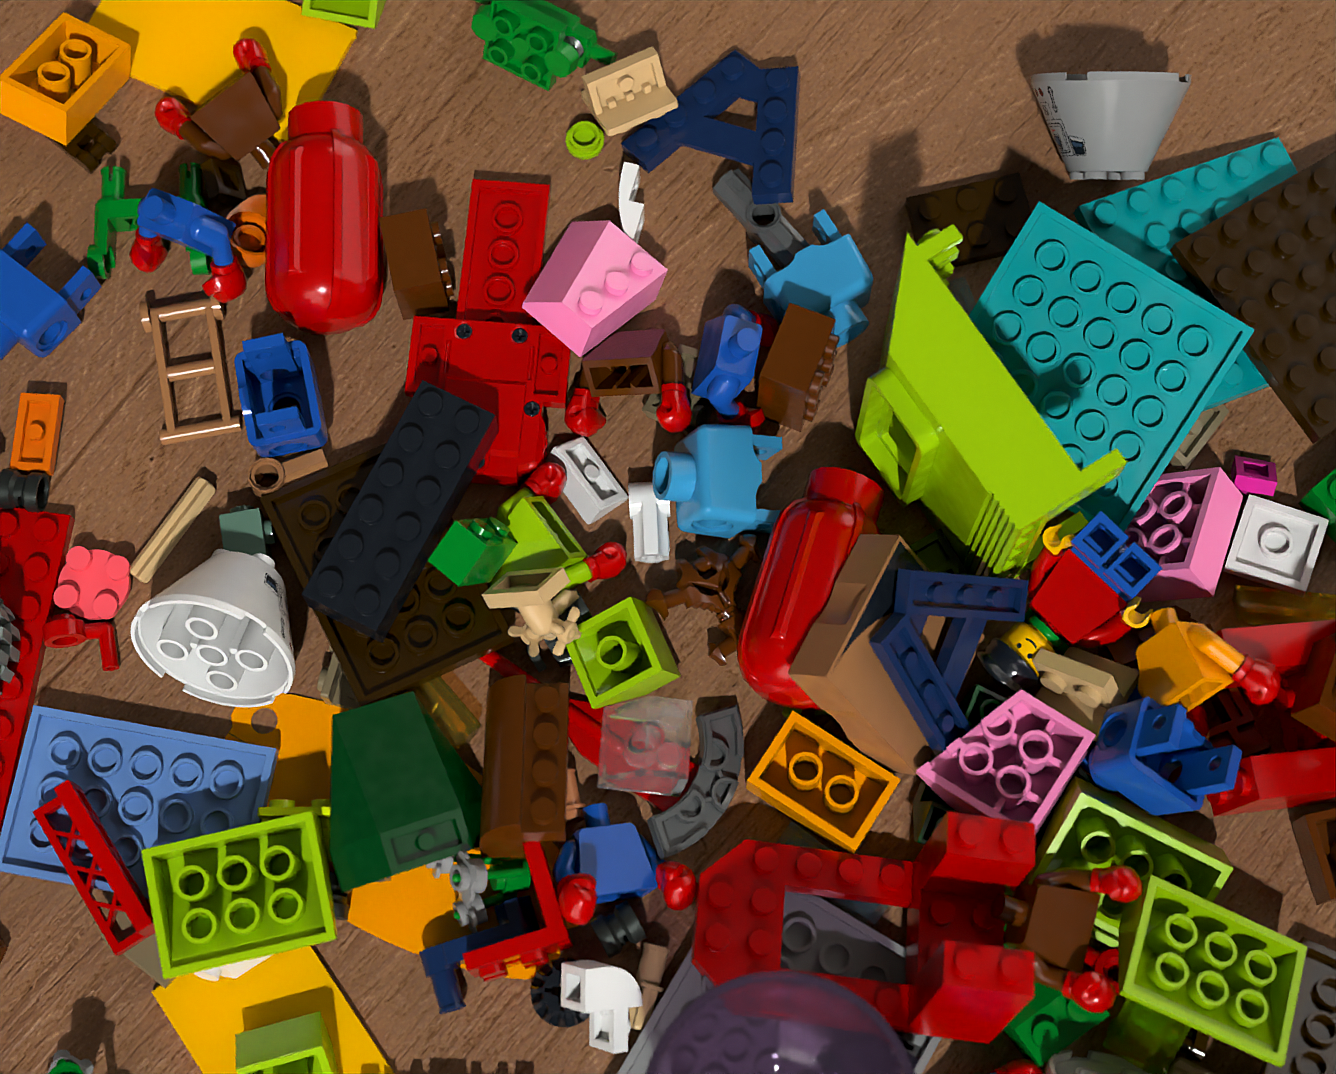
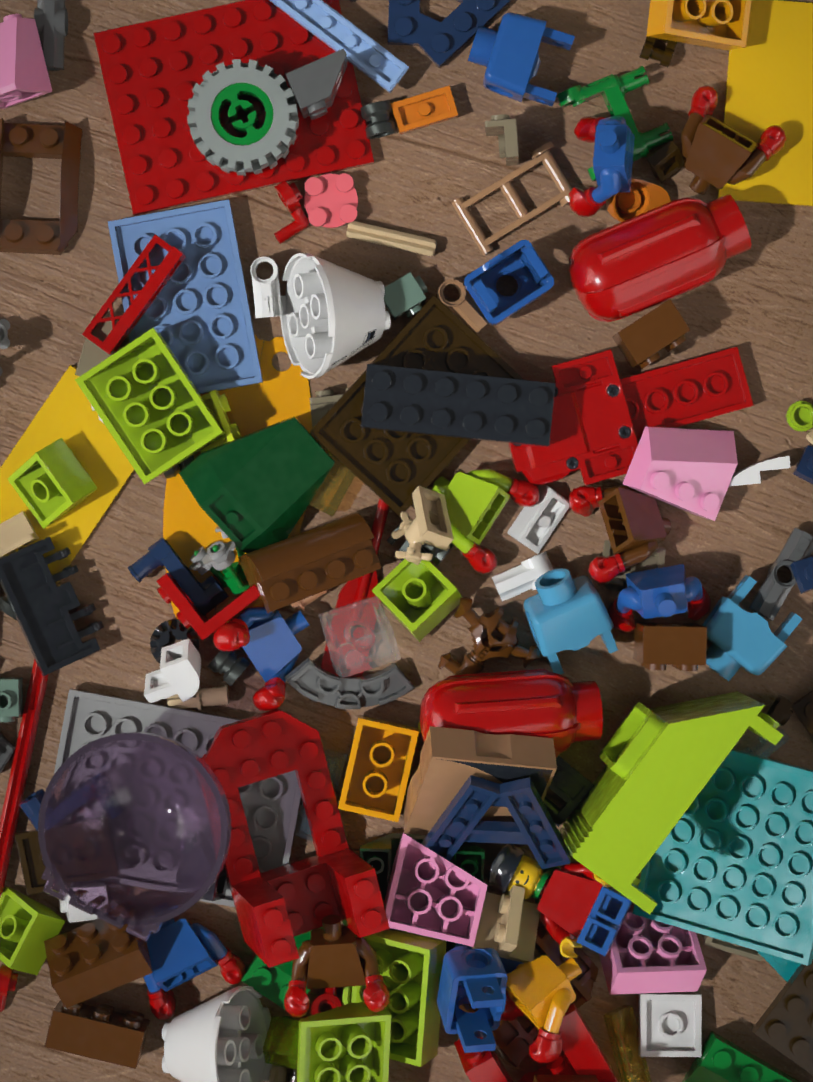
camera: 65 degrees right, 15 degrees up
(106, 341) = (506, 130): none -> dark tan bracket
(166, 701) = (266, 292): none -> white piece
(473, 550) = (445, 469): green brick -> none
(1254, 476) = (717, 994): dark pink plate -> none

